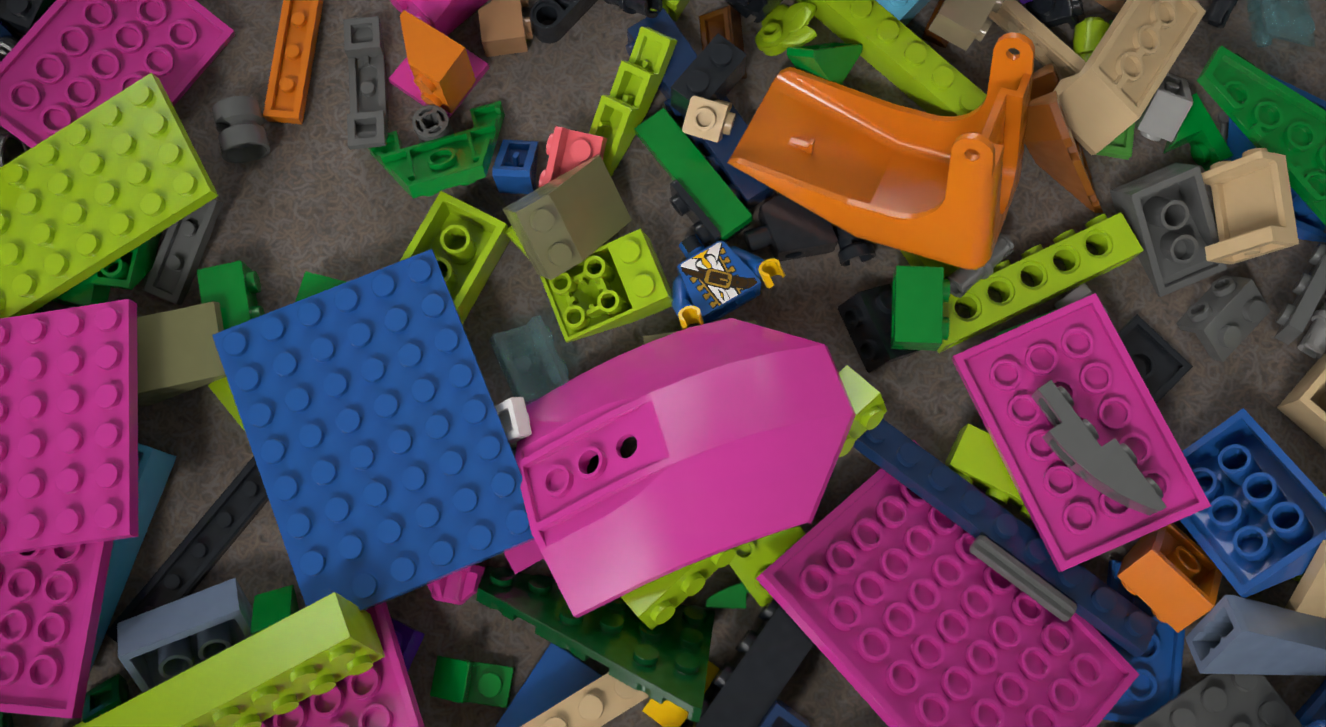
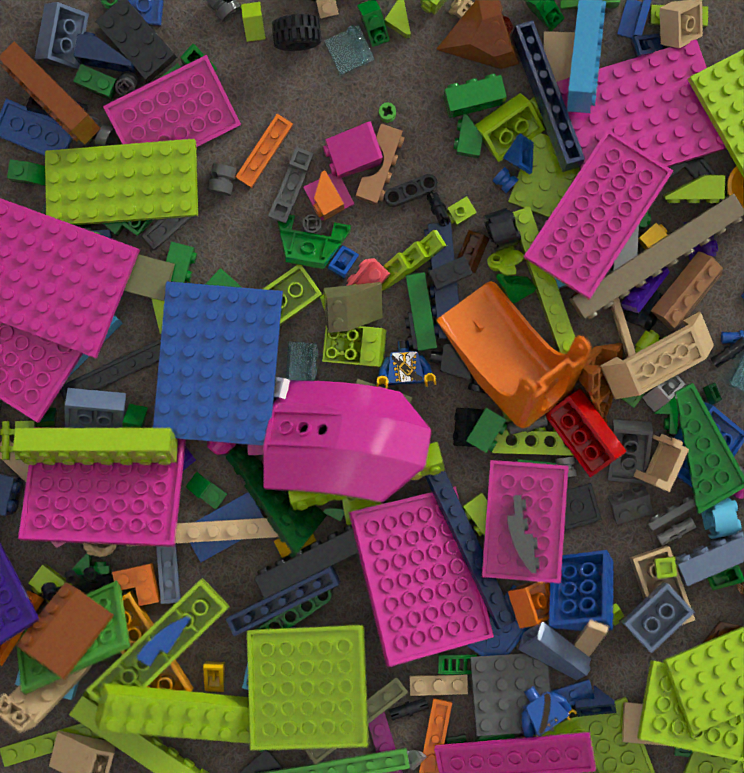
camera: 25 degrees right, 10 degrees up
(708, 118) = (437, 294): tan bracket -> none
(1023, 578) = (466, 571): dark grey axle -> none
(1089, 227) = (585, 433): none -> red slope

